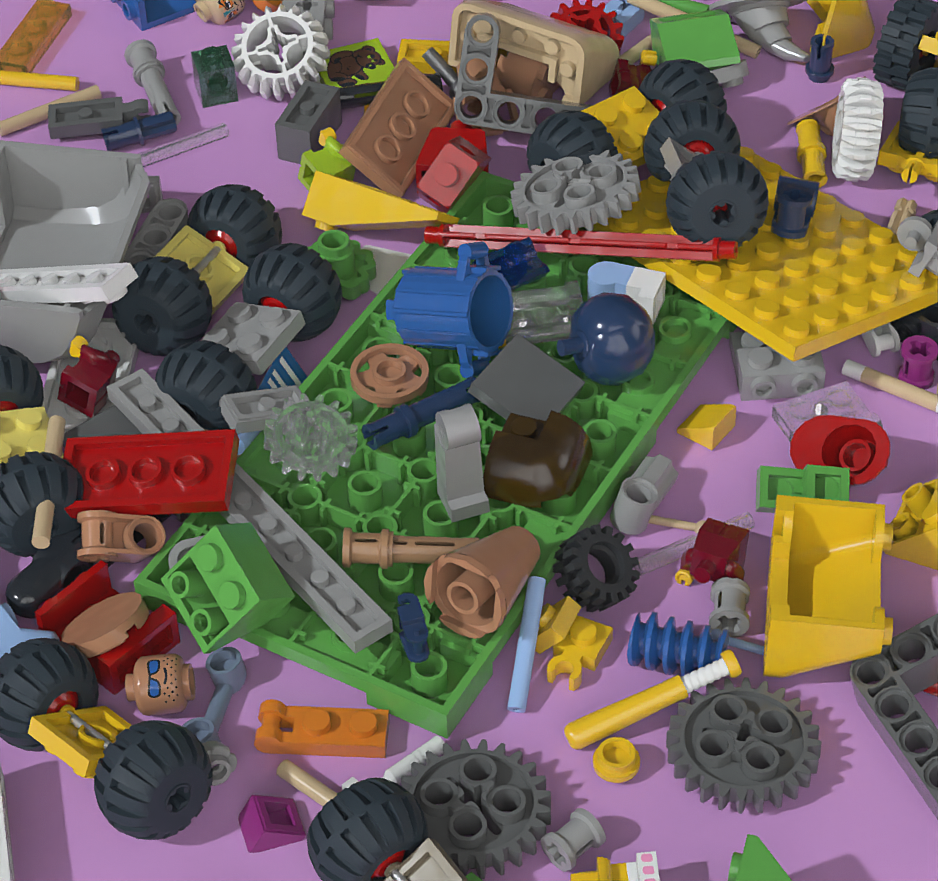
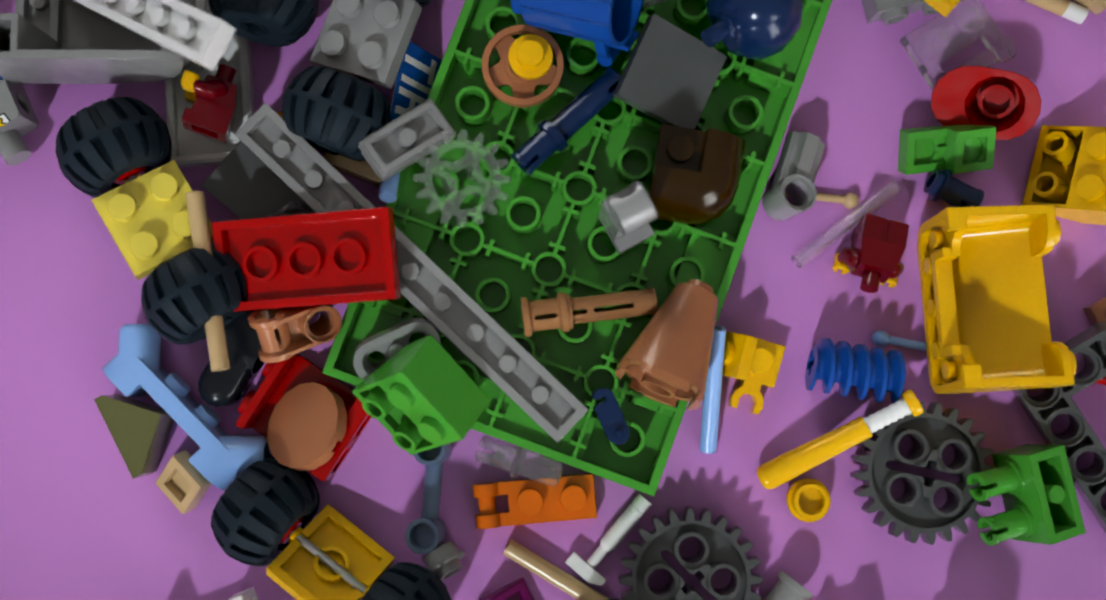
camera: 15 degrees left, 40 degrees up
(161, 684) = (376, 482): nougat head -> none
(312, 686) = (519, 461): none -> clear axle
(397, 359) = (530, 56): none -> yellow plate
(612, 556) = (782, 294): black tyre -> none
(709, 424) = (842, 65): yellow slope -> none
(730, 601) = (892, 308): light grey bush -> none
(859, 760) = (1035, 494): none -> bright green brick

